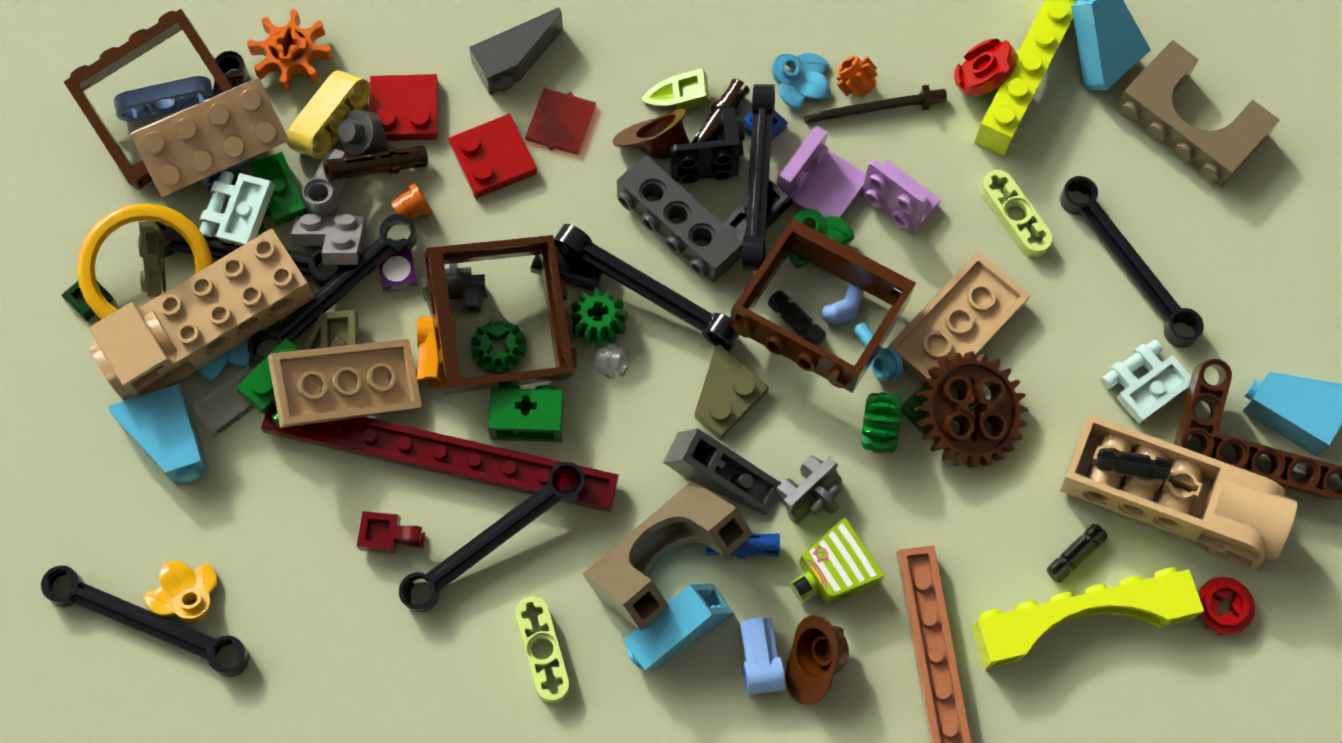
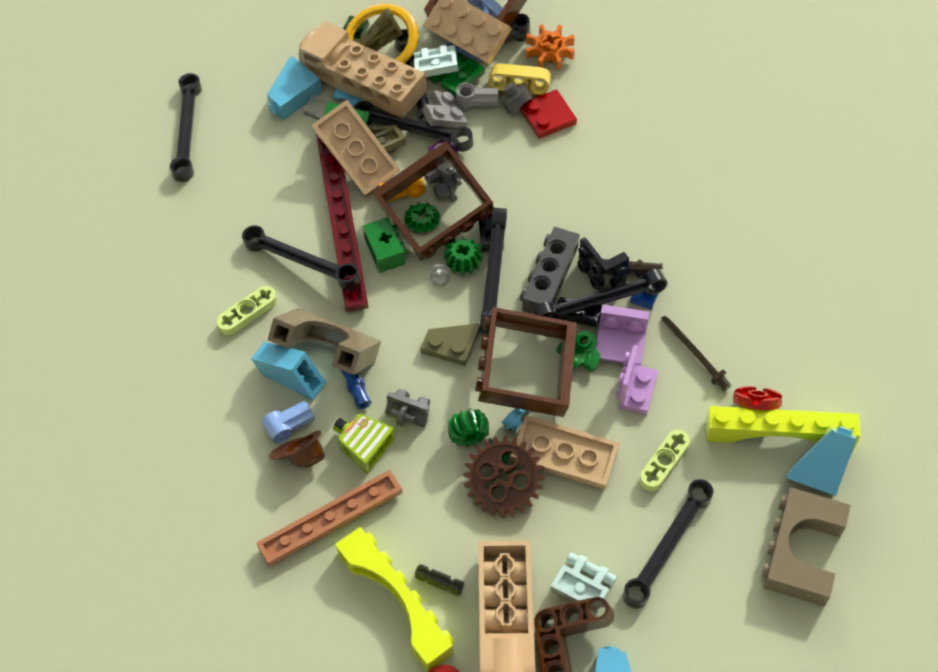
camera: 70 degrees right, 10 degrees down
(180, 587) = (209, 135): yellow plate -> none
(368, 164) = (502, 113): dark brown pin -> none
(383, 531) = (282, 207): dark red plate -> none
(412, 203) = (487, 140): orange piece -> none
(492, 156) = (541, 167): red plate -> none
(510, 54) = (613, 148): dark grey slope -> none
(560, 121) = (584, 191): clear red piece -> none
(655, 135) = (600, 238): reddish brown piece -> none
(680, 91) = (639, 241): plate -> none
(721, 470) = (396, 356): dark grey slope -> none
(796, 318) = (520, 361): pearl dark grey axle -> none
(804, 82) = (689, 304): medium azure plate -> none
(846, 309) = (539, 385): light blue arm -> none
(856, 76) = (706, 329): orange gear -> none
(1133, 463) = (503, 575): pearl dark grey axle -> none

